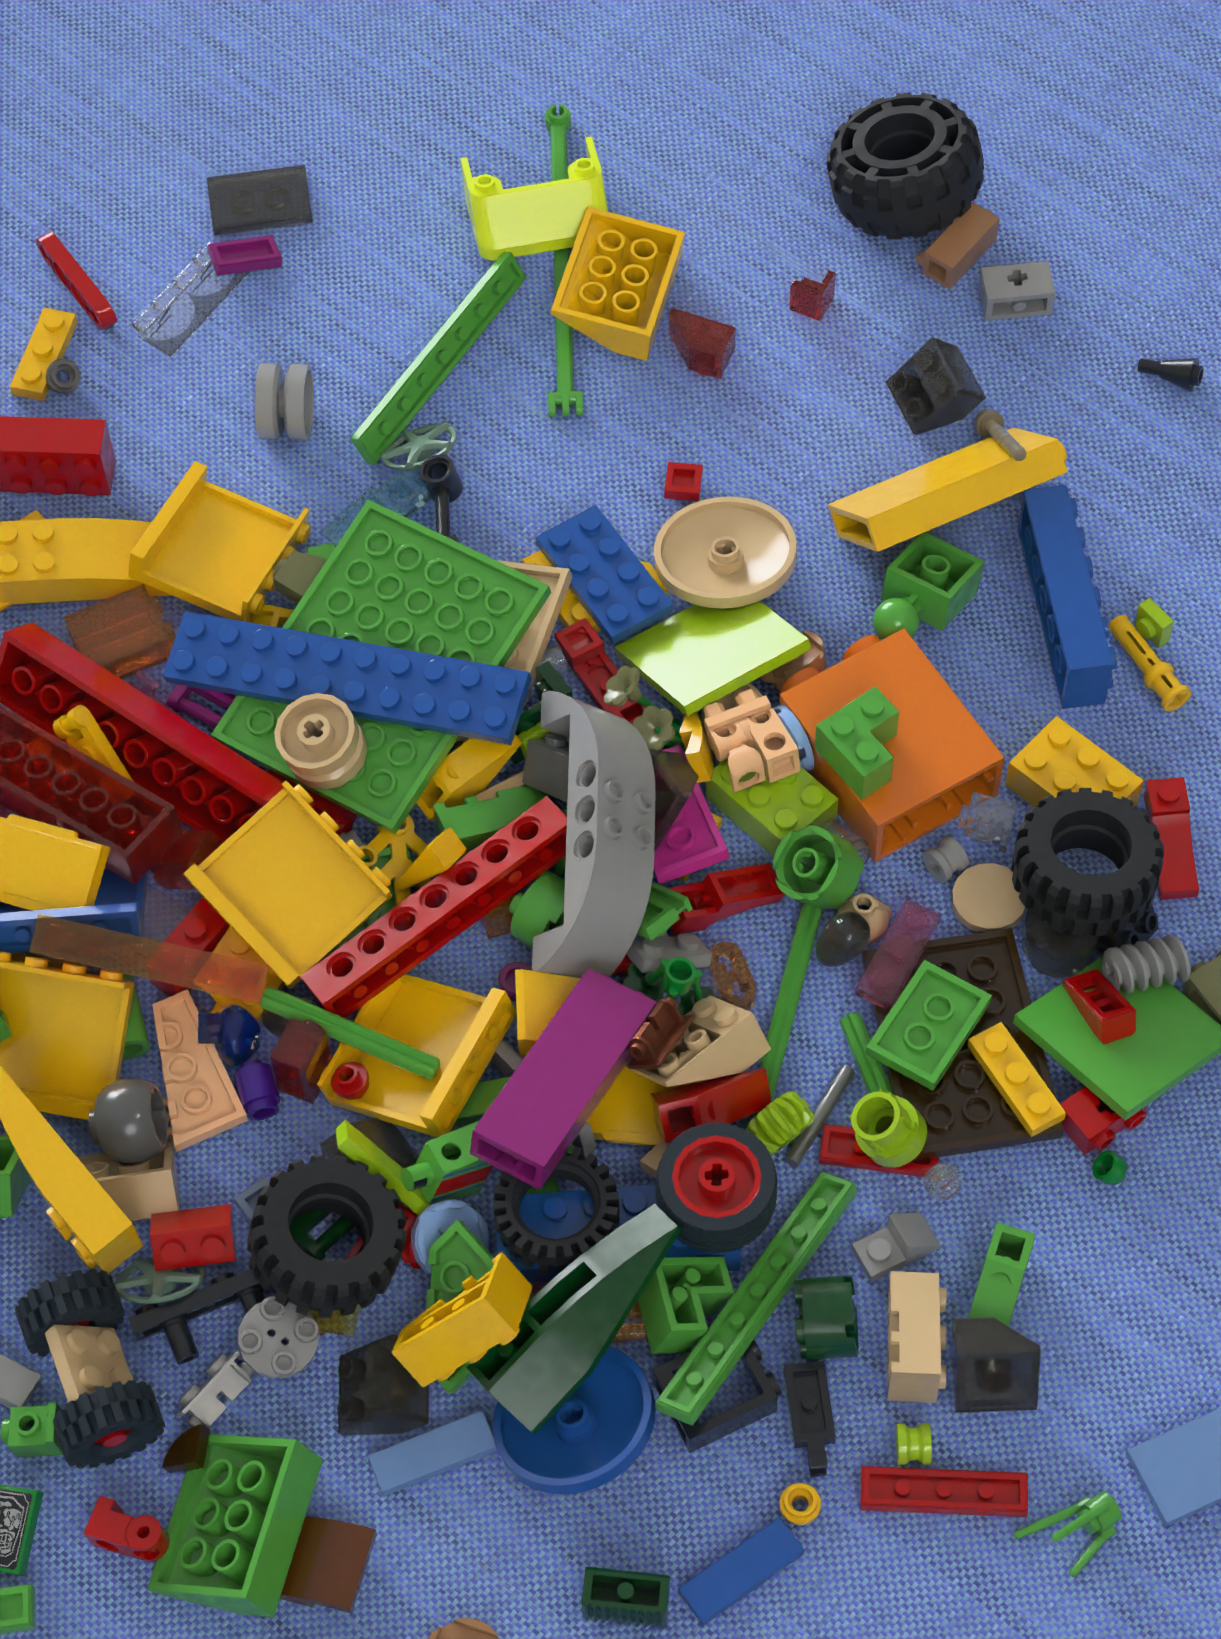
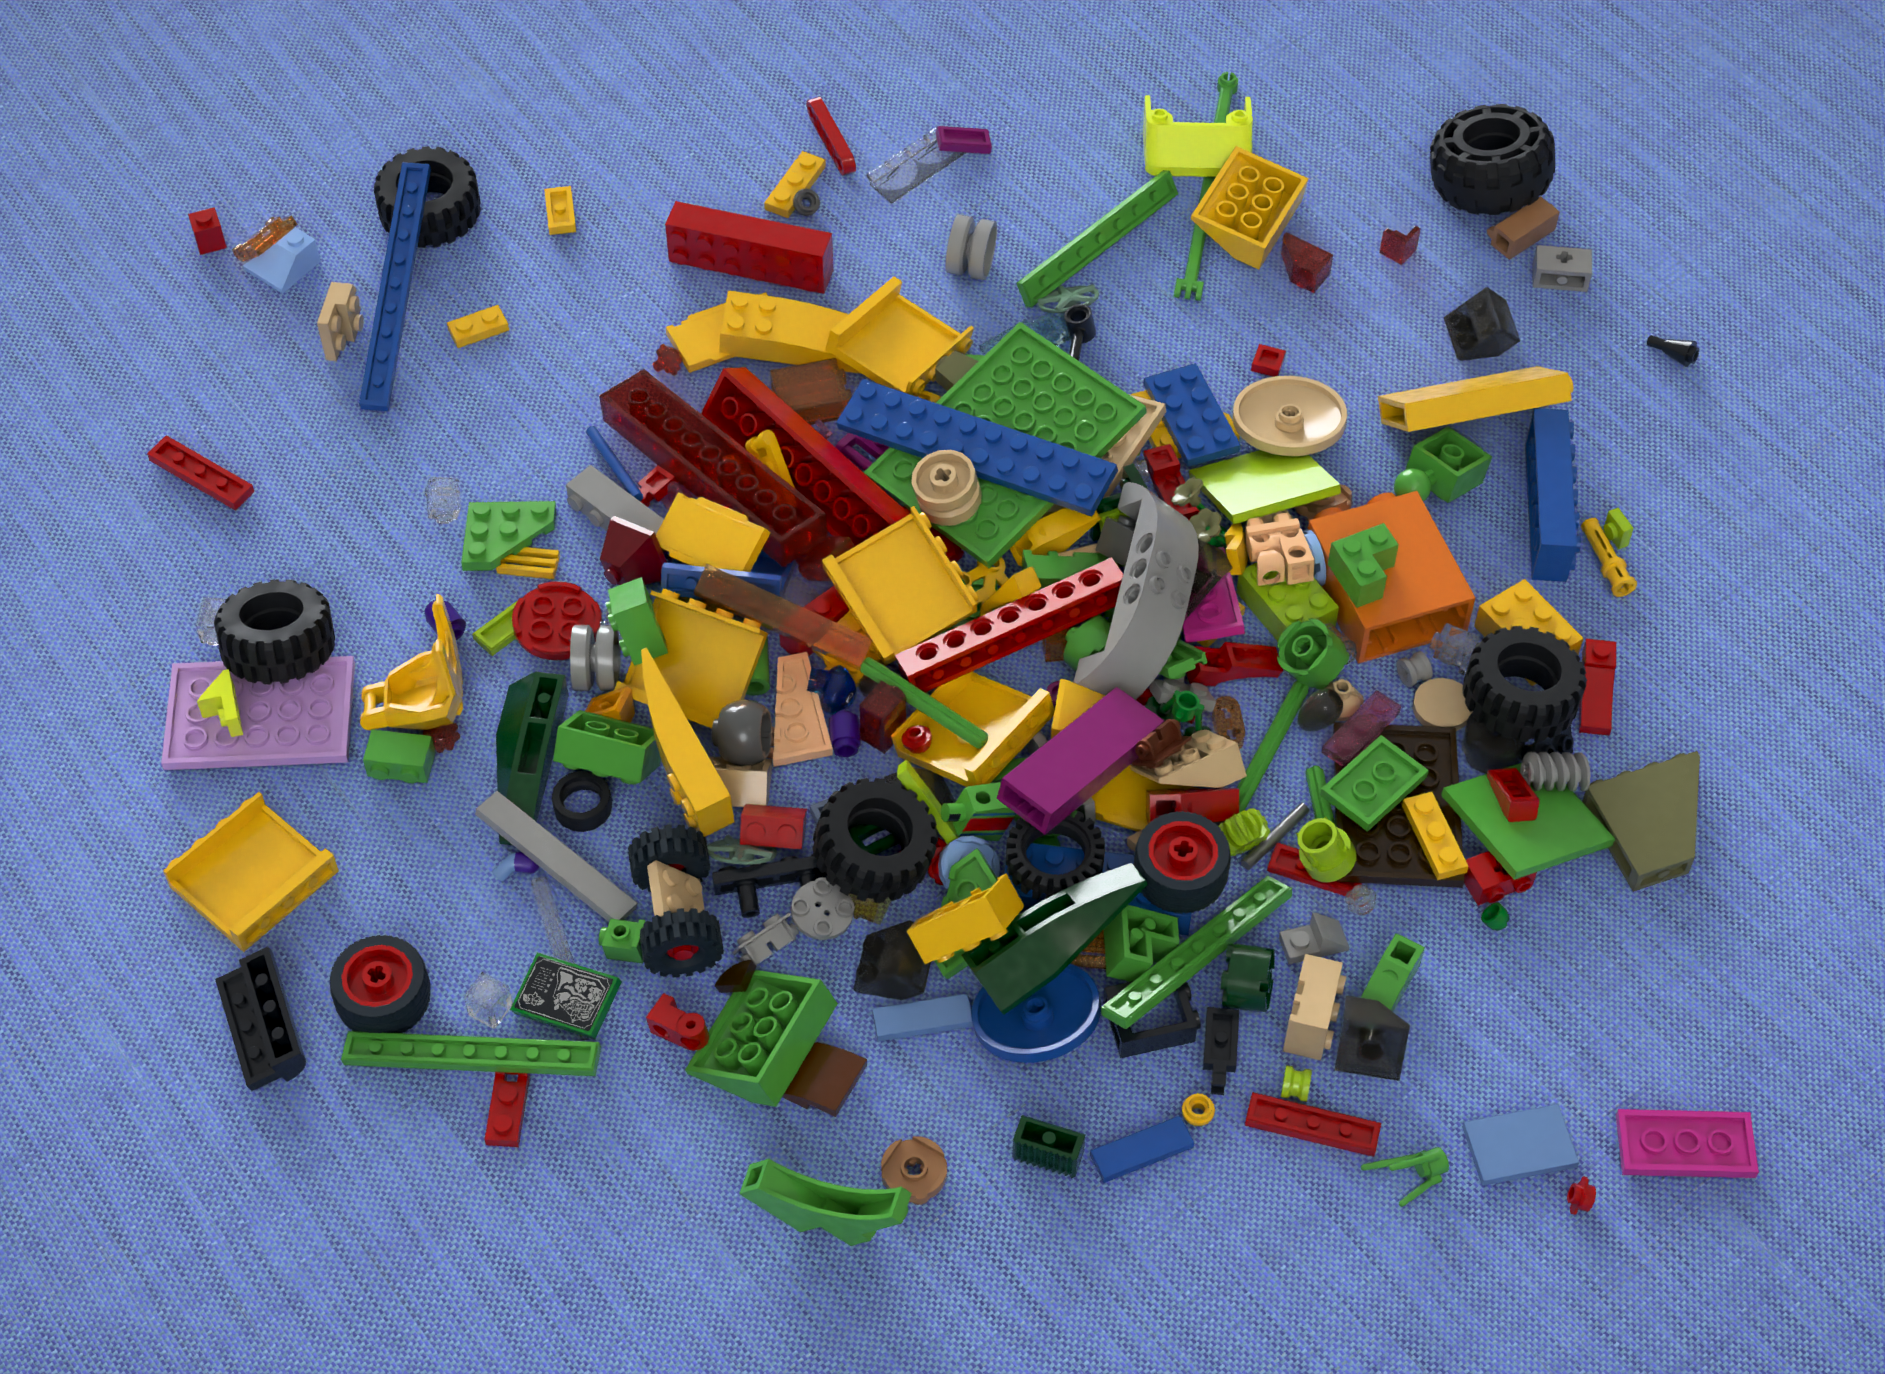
camera: 10 degrees right, 5 degrees down
(259, 200) = (983, 103): clear smoke tile -> none
(990, 423) = (1521, 361): dark tan piece -> none

